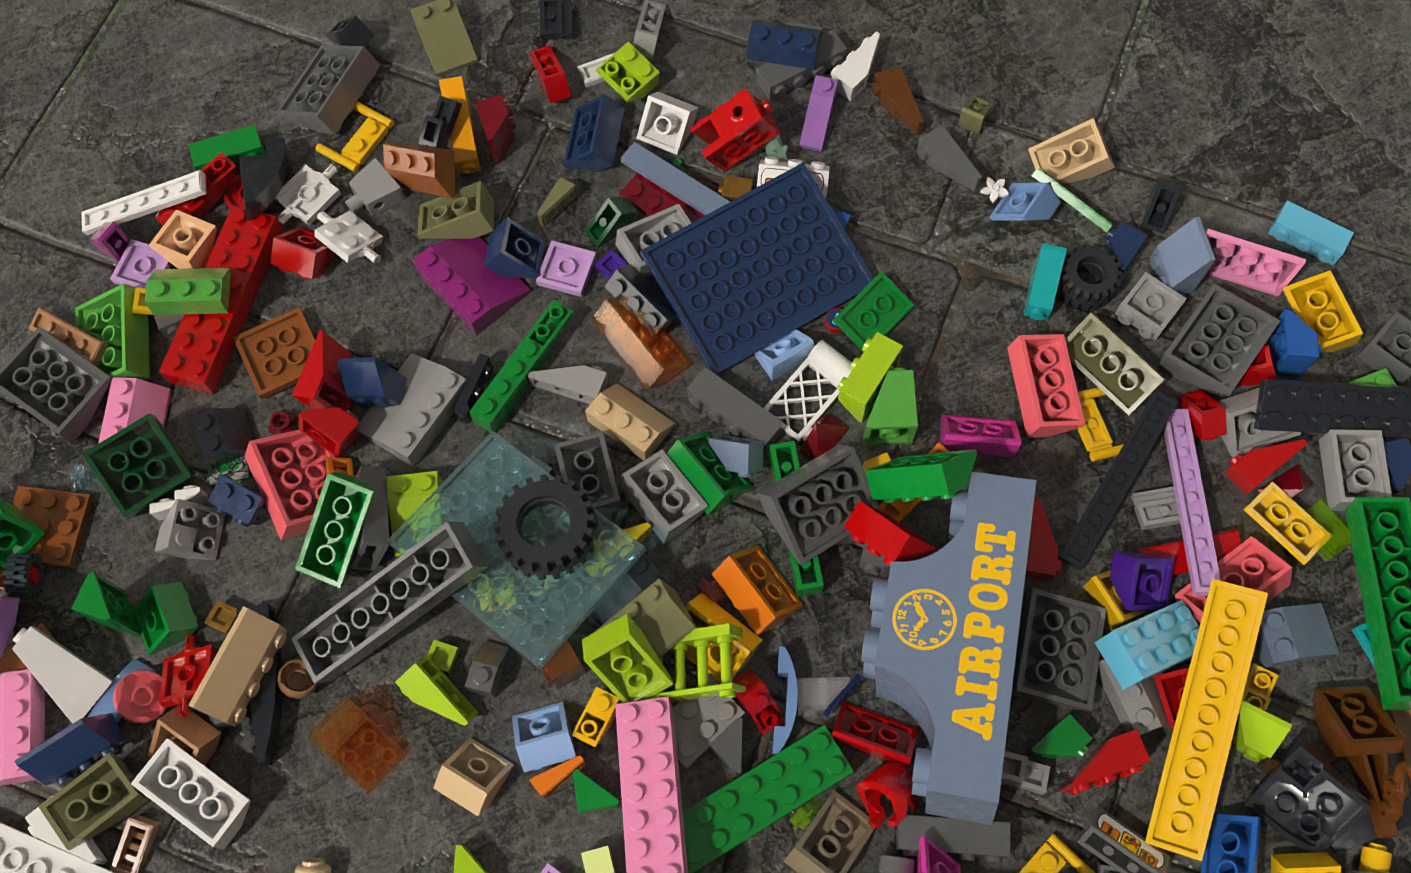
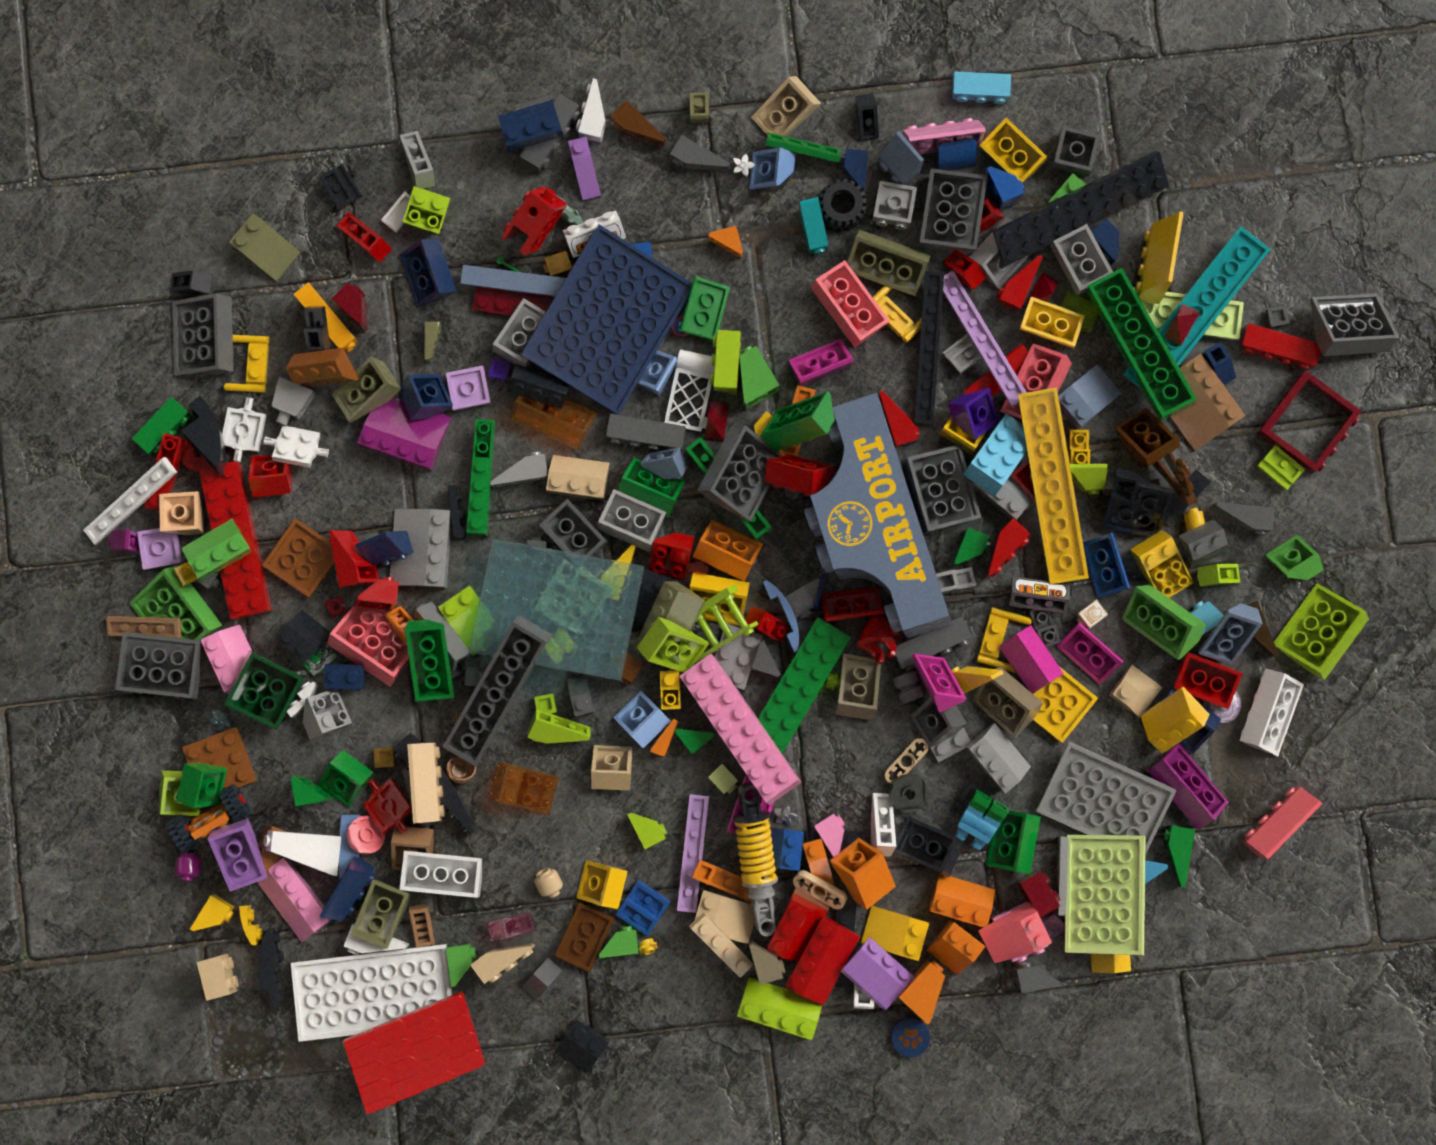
camera: 30 degrees left, 15 degrees up
(552, 558) = (591, 606): black tyre -> none
(613, 215) = (480, 334): dark green slope -> none
(666, 122) = (475, 233): white slope -> none
(688, 559) = (671, 555): none -> red slope
(937, 254) = (728, 240): none -> orange slope
(1253, 283) = (956, 155): none -> blue slope

